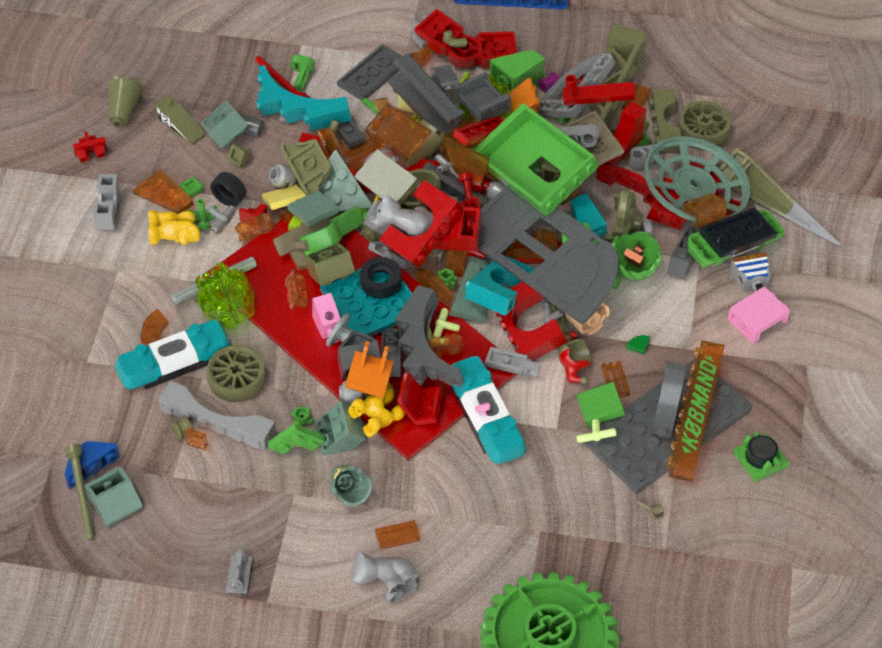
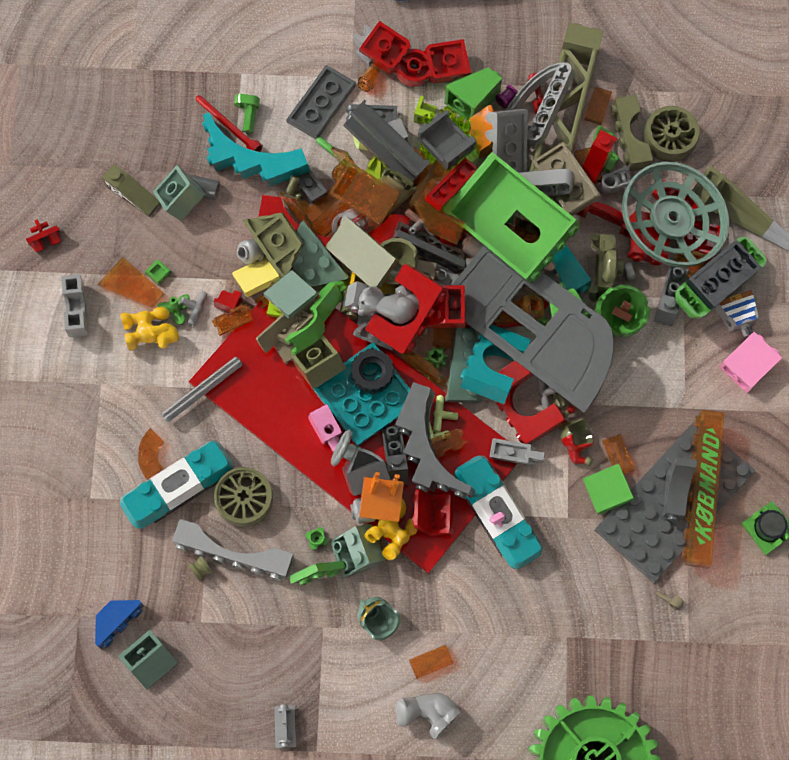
camera: 10 degrees left, 20 degrees up
(74, 453) = (101, 622): olive piece -> none
(122, 98) = (66, 173): olive cone -> none
(196, 439) = (216, 579): clear orange tile -> none
(225, 284) = (203, 411): clear neon green piece -> none
(233, 183) = (197, 275): black tyre -> none
(238, 155) = (199, 227): olive tile -> none
(295, 283) = (285, 383): clear orange hinge -> none
(444, 77) = (402, 118): dark grey slope -> none
(453, 42) = (400, 61): olive arm -> none
(465, 179) = (449, 265): red hinge -> none
(545, 98) = (509, 137): none -> light grey hinge
(596, 93) = (563, 118): red piece -> none
(596, 434) = (609, 527): yellowish green piece -> none
(638, 344) = (636, 410): green tile -> none
(706, 209) = (690, 254): clear orange bracket -> none

